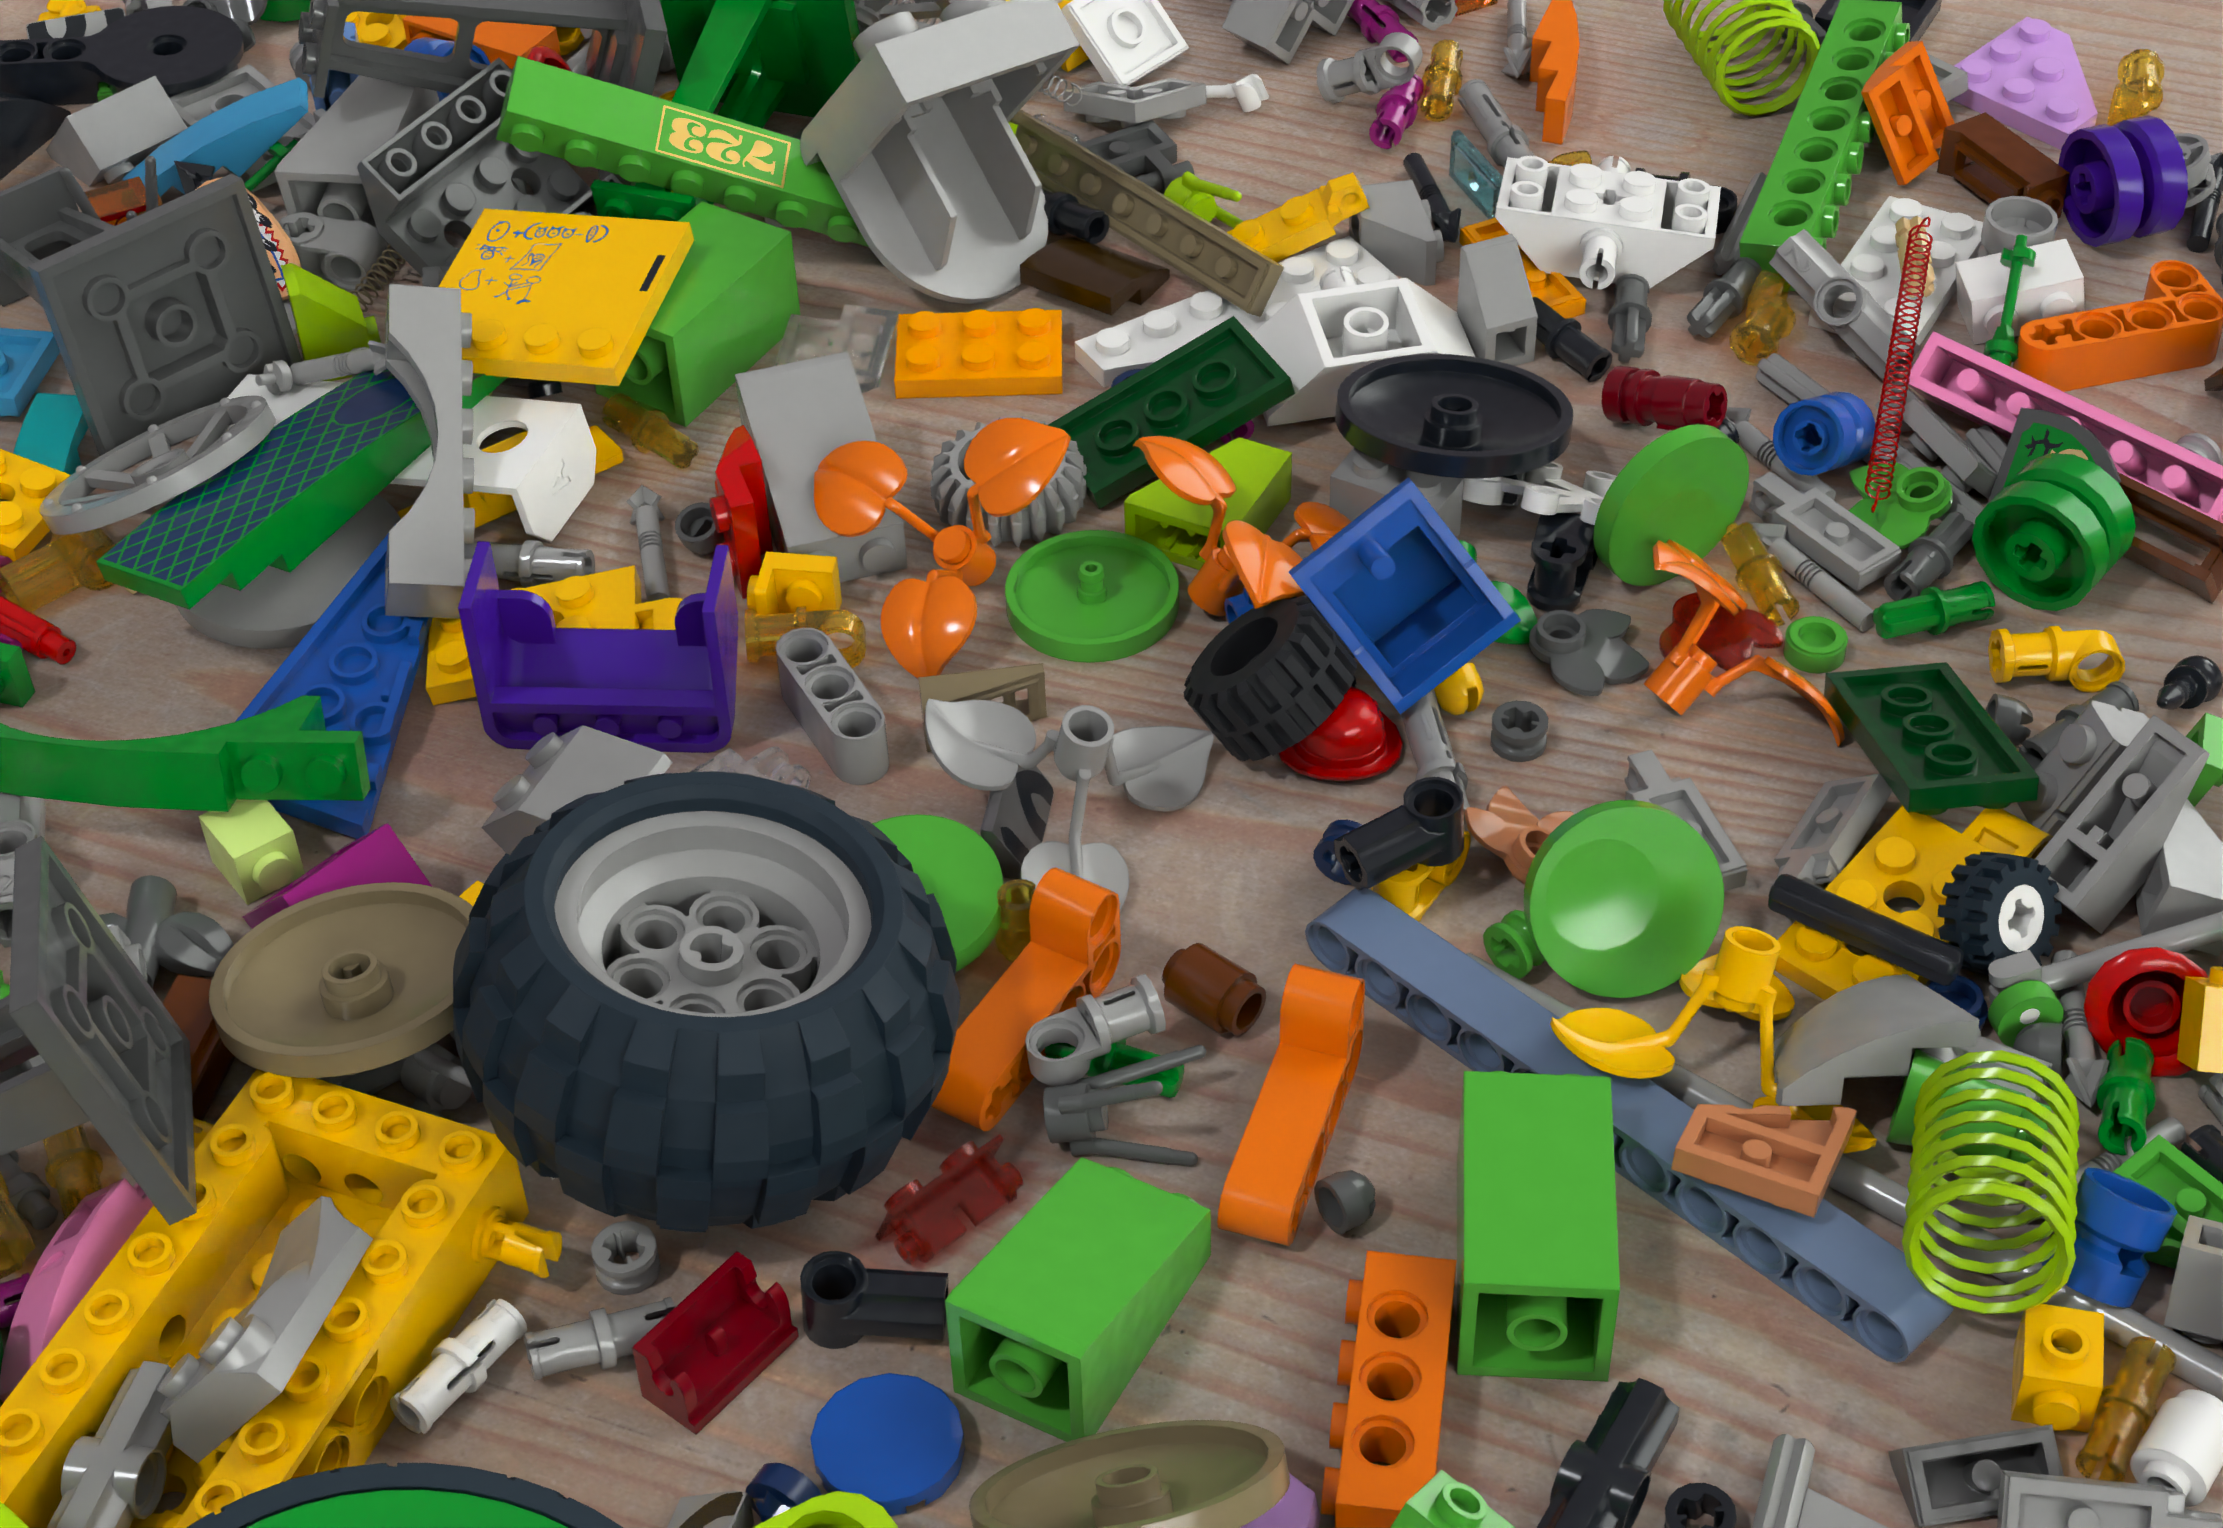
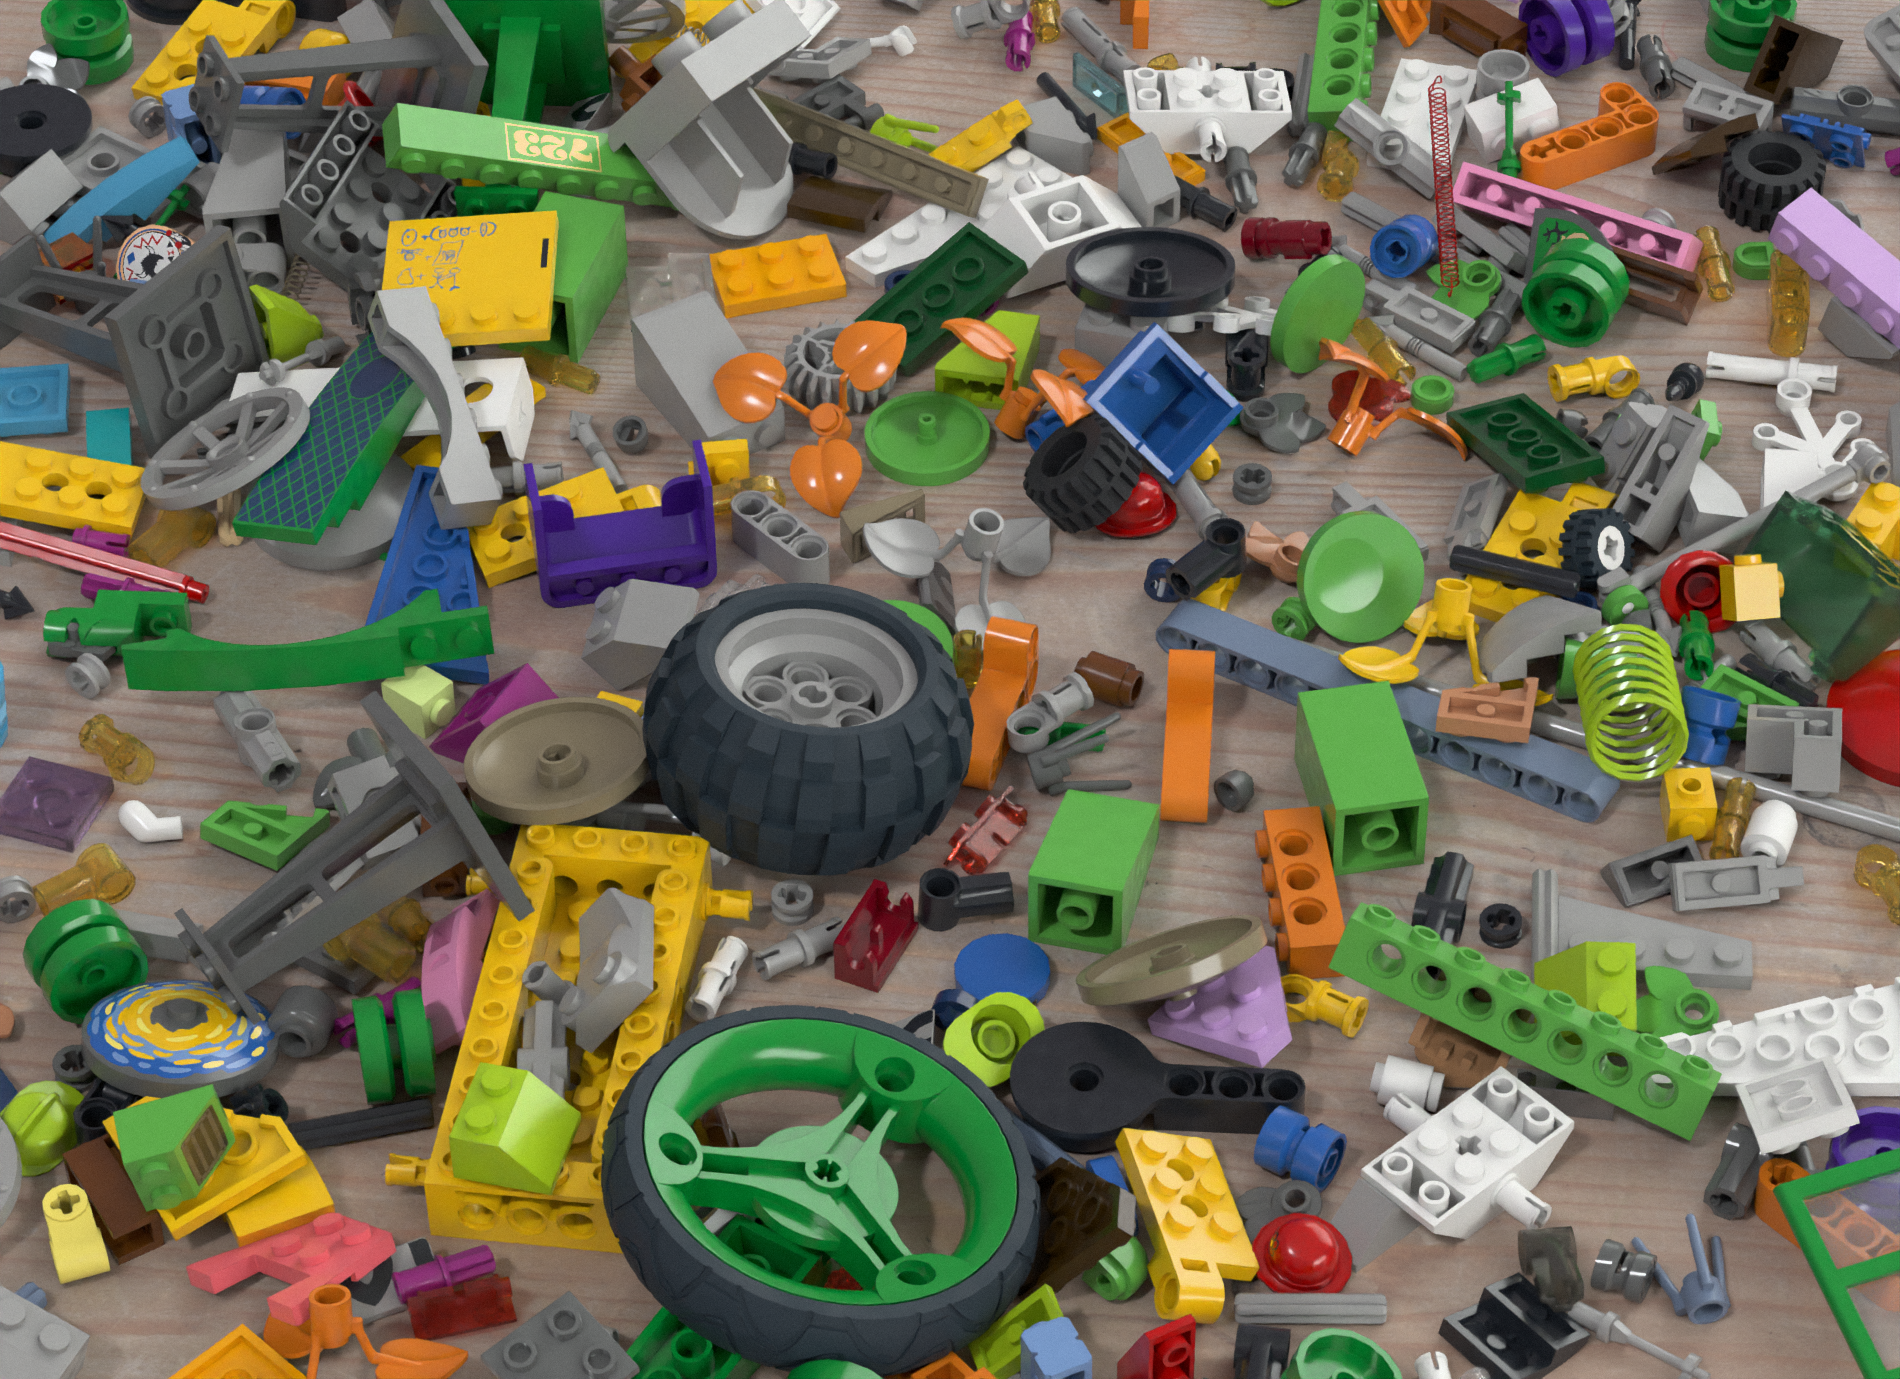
camera: 15 degrees left, 0 degrees up
(169, 1331) = (544, 982): none -> light grey pin
(340, 364) = (362, 345): light grey piece -> none
(742, 507) = (665, 415): red plate -> none
(1903, 227) = (1422, 85): tan axle -> none

